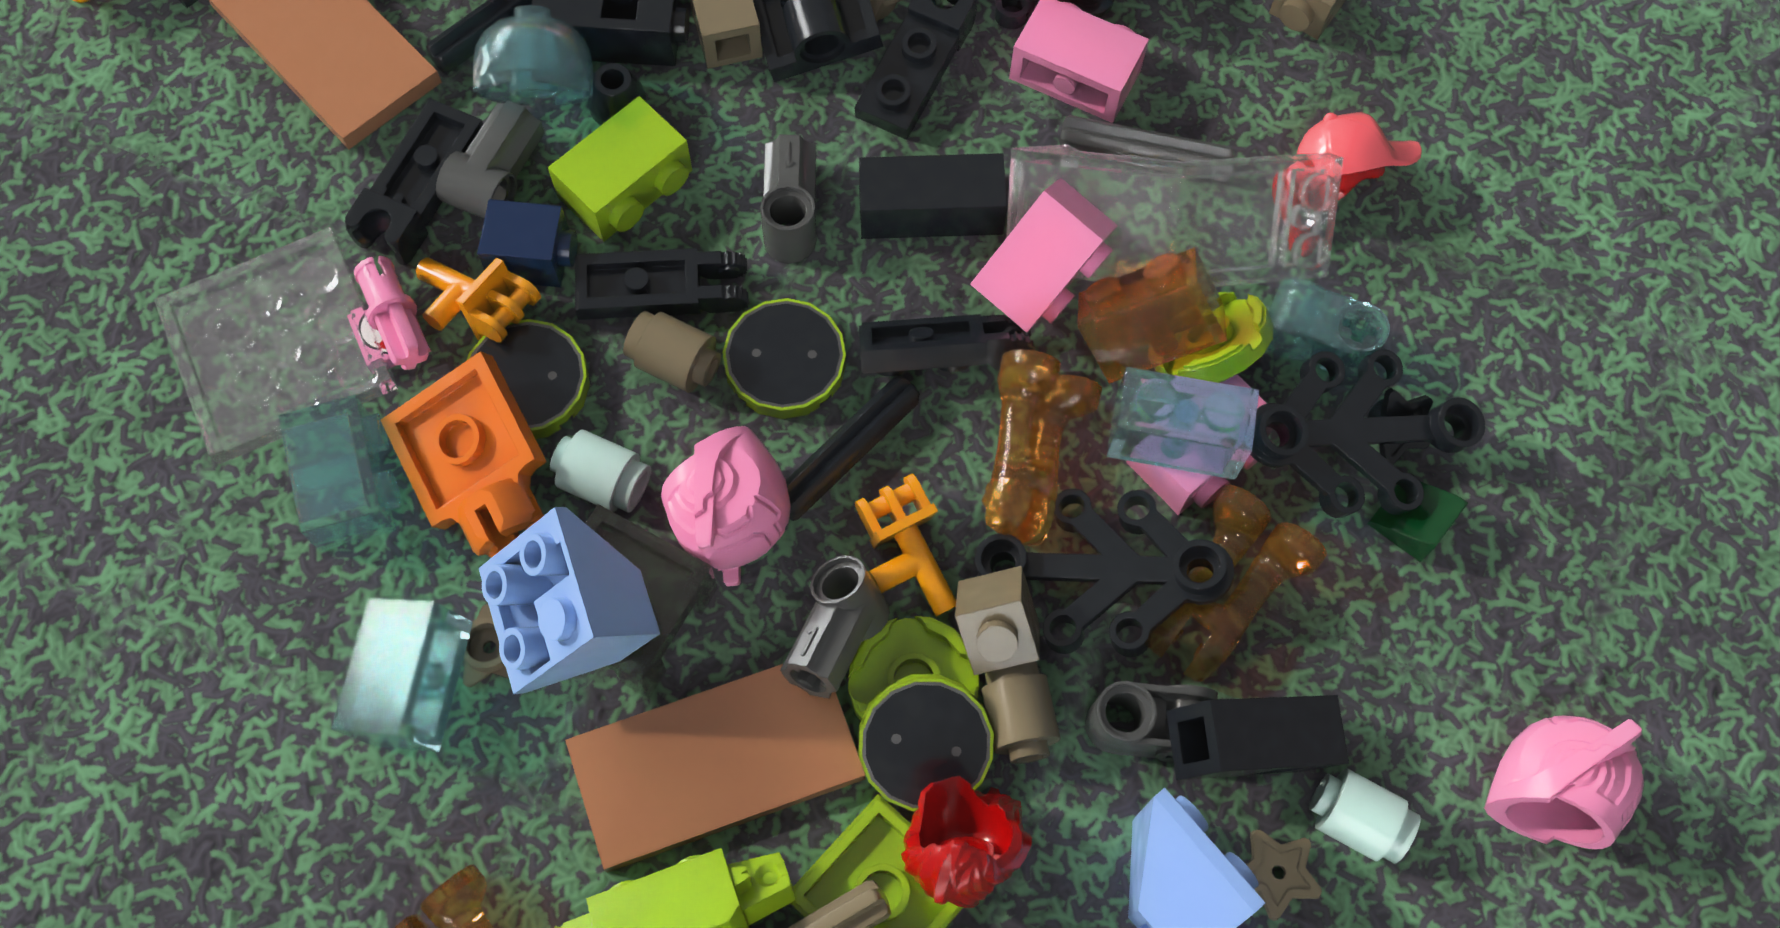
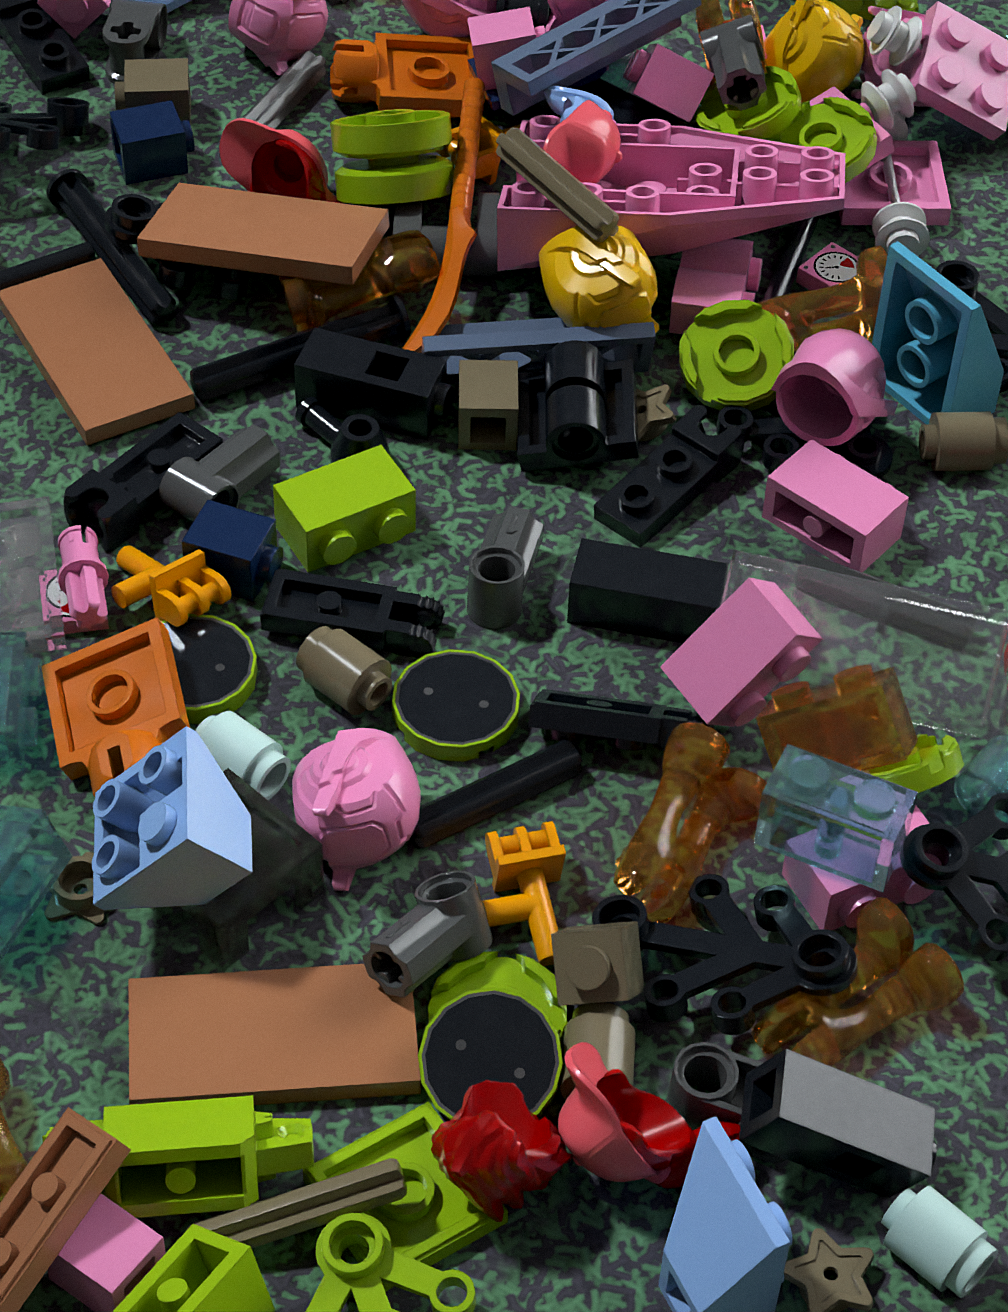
camera: 15 degrees right, 20 degrees down
(532, 60) = (287, 395): clear light blue cylinder -> none
(1077, 790) = (622, 1129): none -> hair

